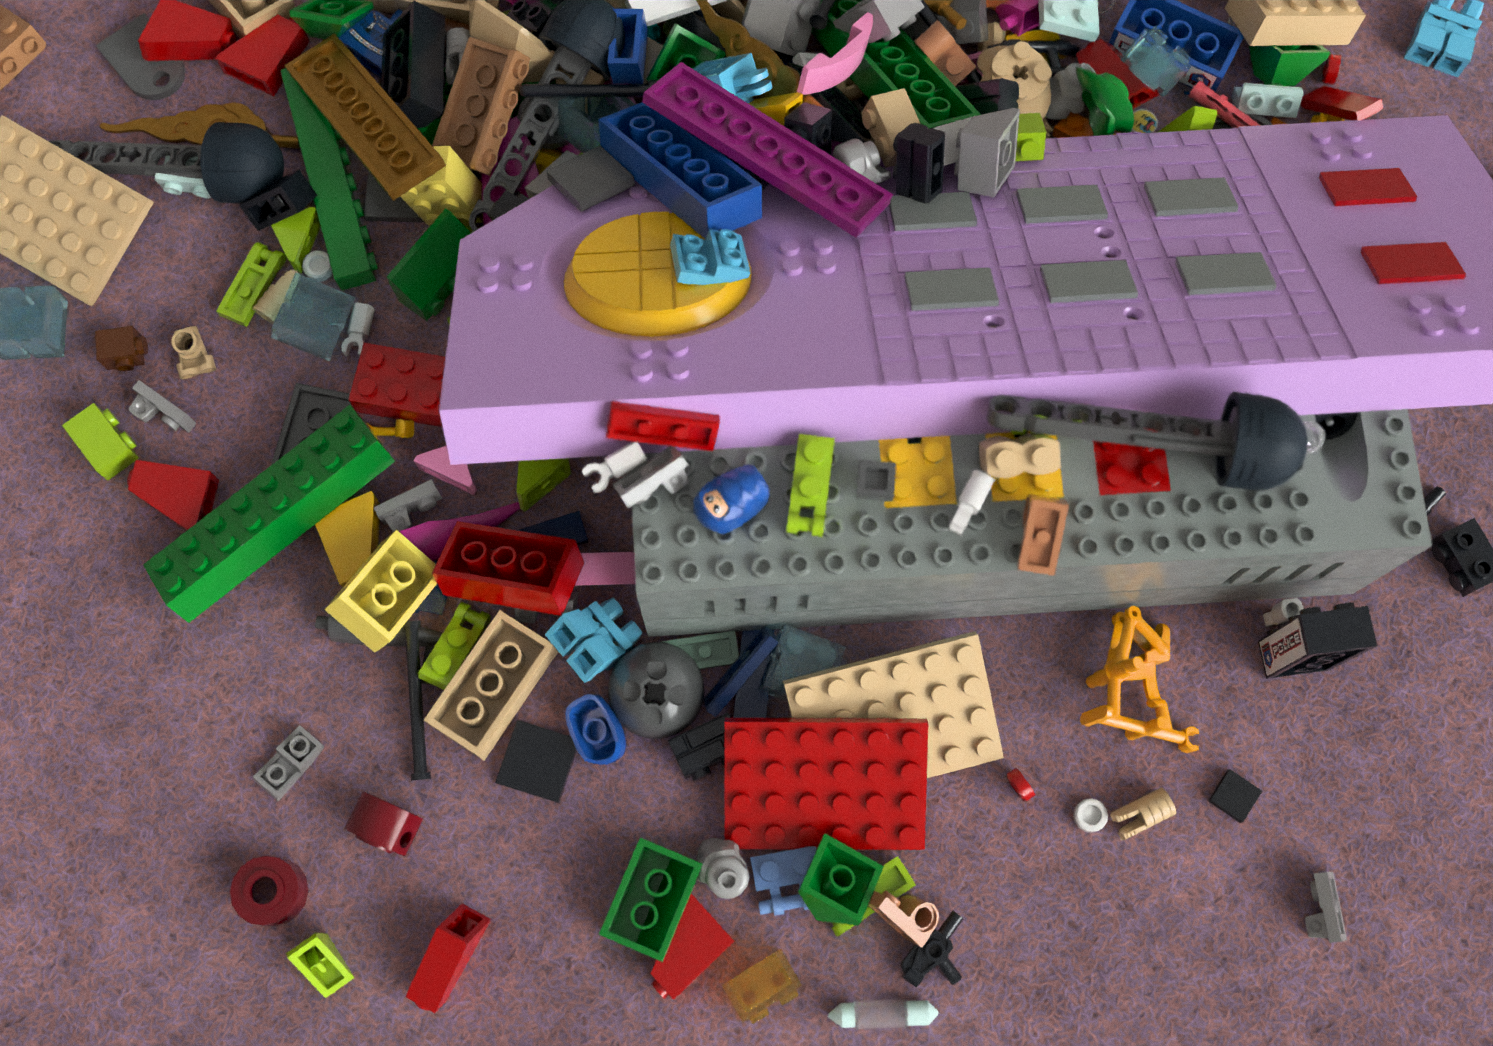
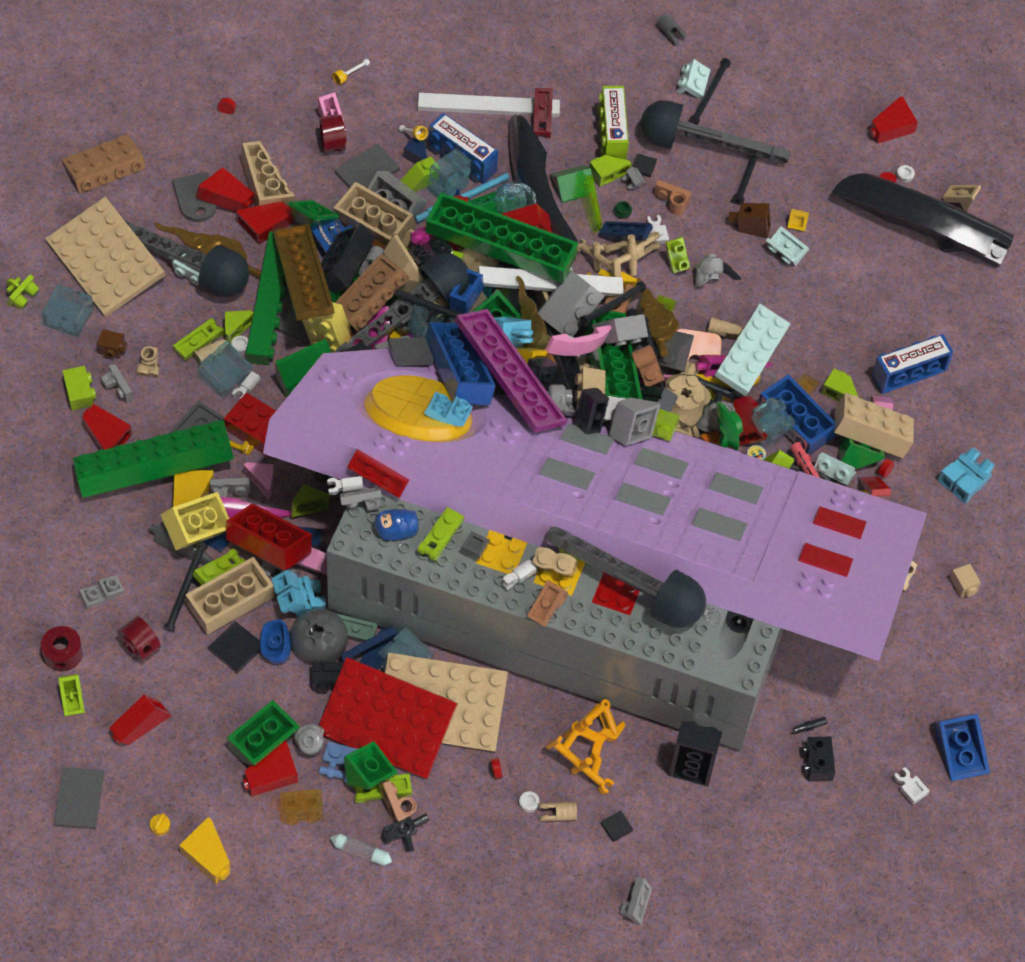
camera: 20 degrees right, 15 degrees down
(279, 201) = (235, 300): black brick -> none

